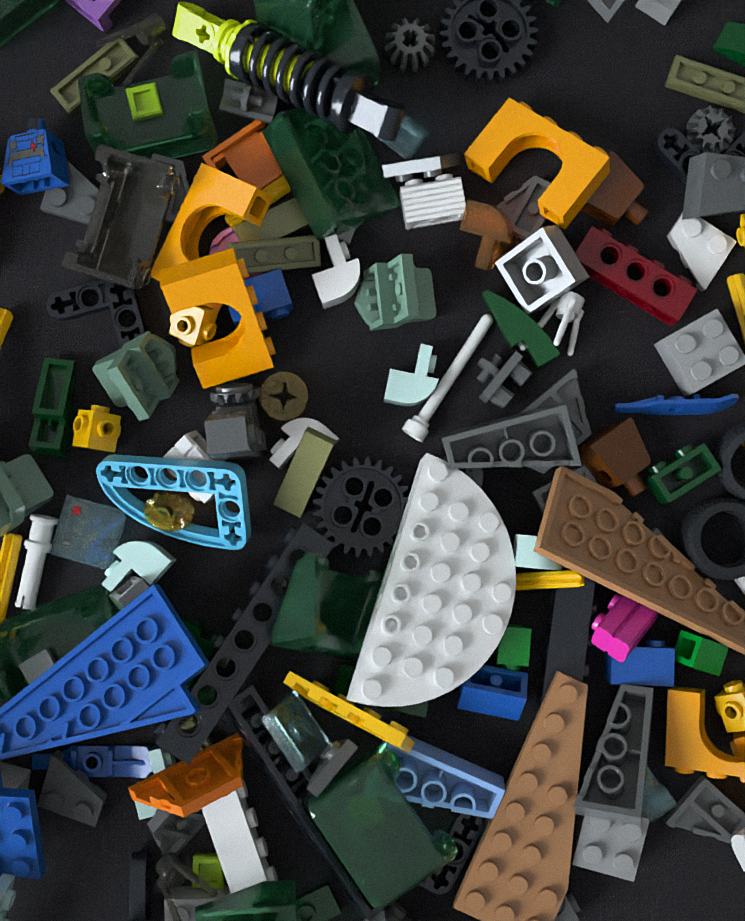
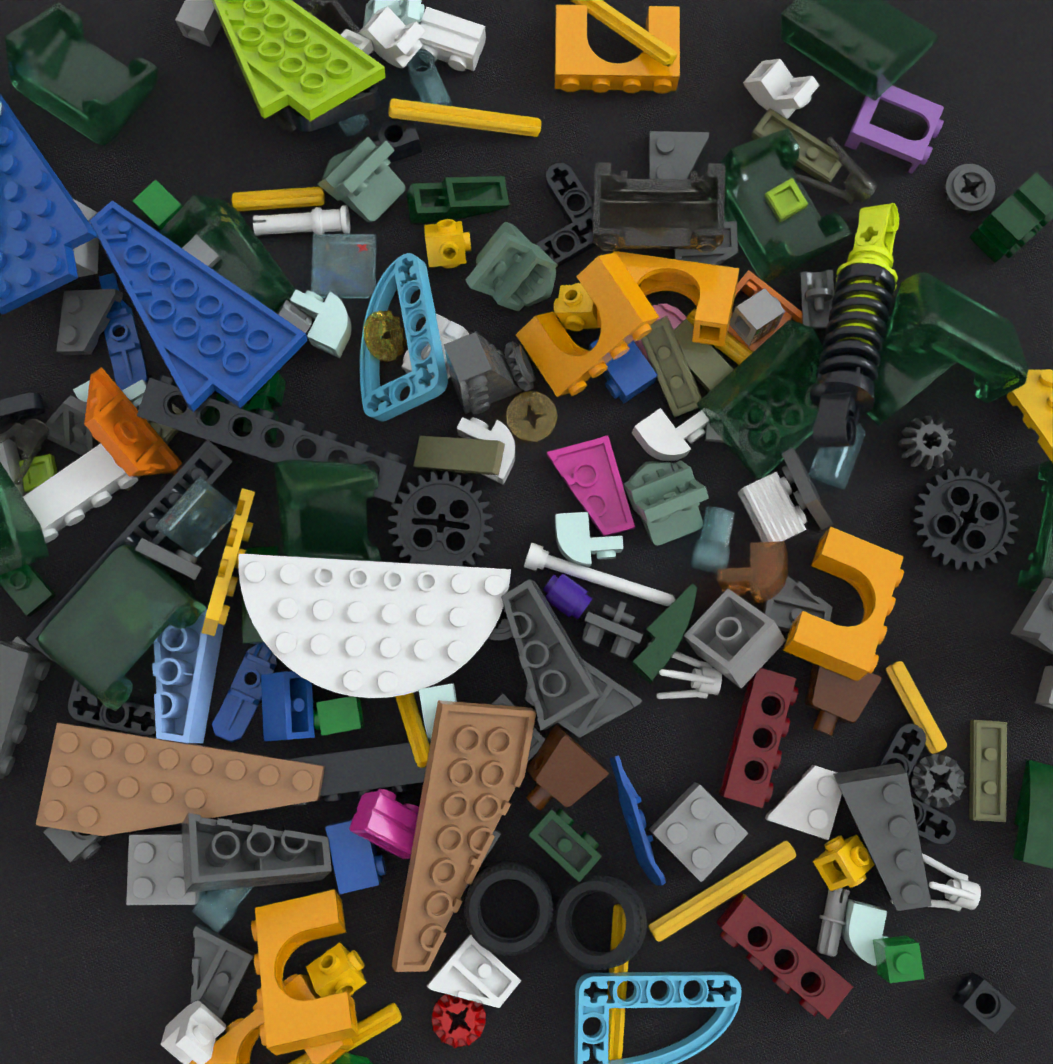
camera: 70 degrees right, 5 degrees down
(35, 76) = (777, 89): none -> white brick
(35, 160) = (694, 112): blue torso -> none
(250, 160) = (756, 316): none -> light grey brick
(363, 354) = (596, 483): none -> dark pink wing
(453, 267) = (712, 549): none -> clear light blue piece
(460, 409) = (567, 596): none -> dark purple brick
(471, 730) = (243, 698): none -> blue piece
(640, 129) = (916, 706): none -> yellow axle
(700, 653) = (381, 914): green brick -> none

